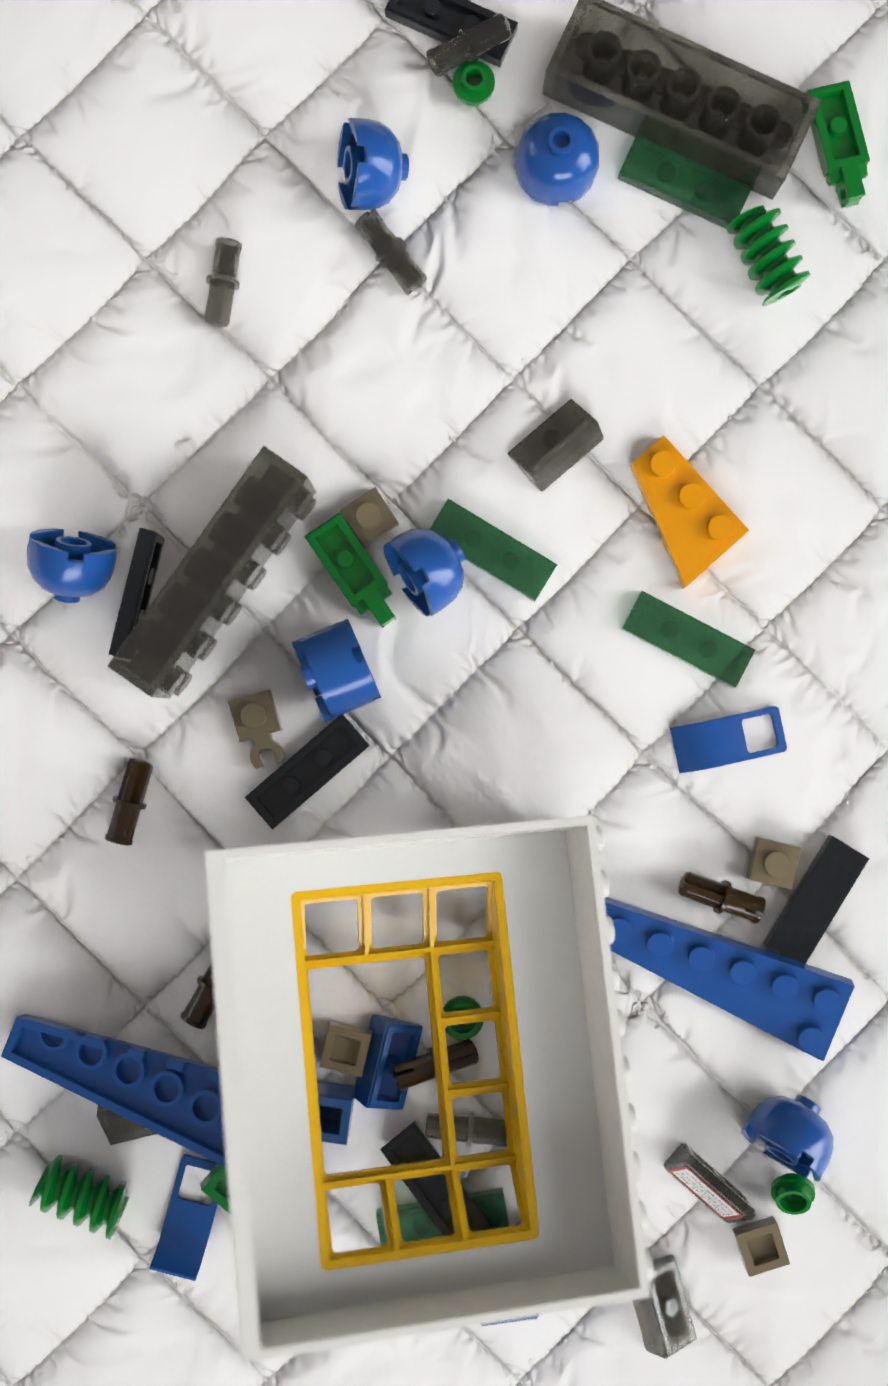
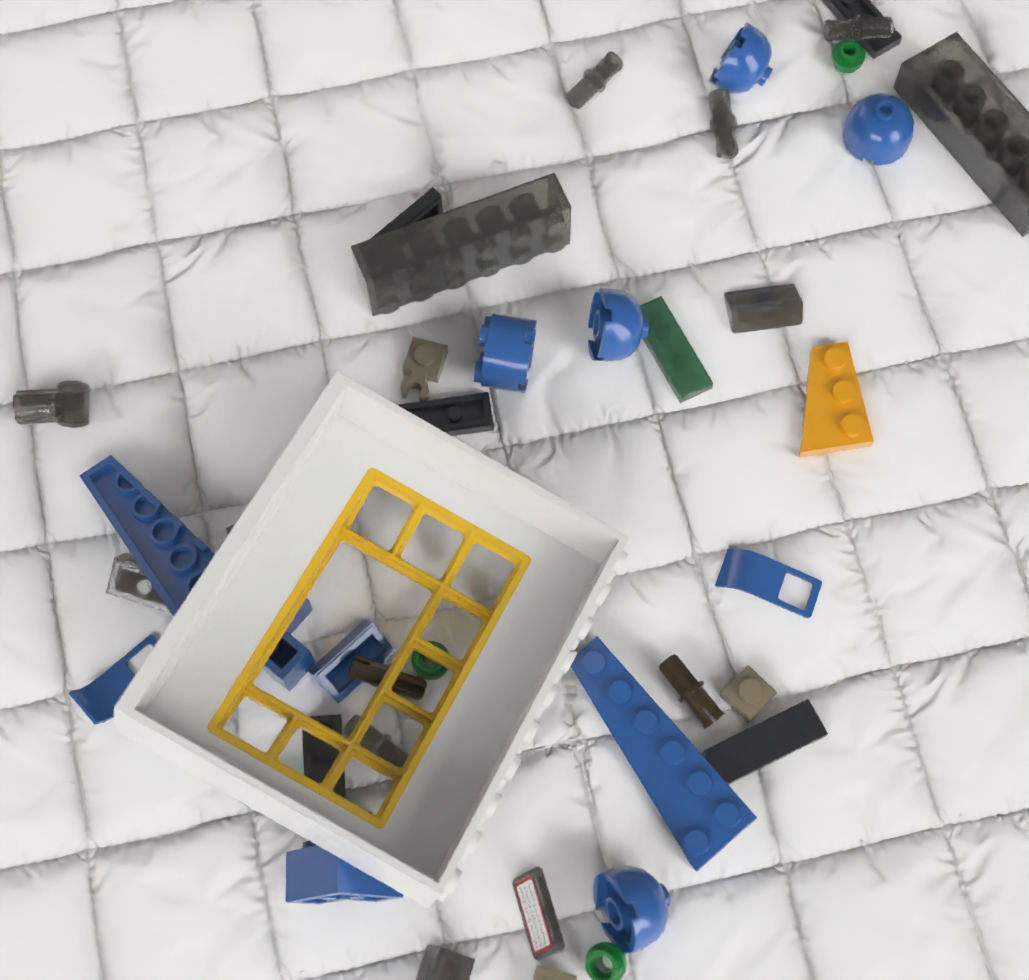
camera: 35 degrees right, 20 degrees down
(70, 564) = (368, 187): blue cylinder -> none
(81, 1195) = (59, 609): green piece -> none
(129, 802) = (295, 363): dark brown axle -> none
(345, 1048) = (328, 626): dark tan plate -> none
(351, 568) = (561, 302): green hinge -> none
(369, 517) = (595, 275): dark tan plate -> none
(683, 182) = (963, 193): clear green tile -> none
(687, 639) = (780, 492): clear green tile -> none
(767, 253) = (997, 264): green piece -> none

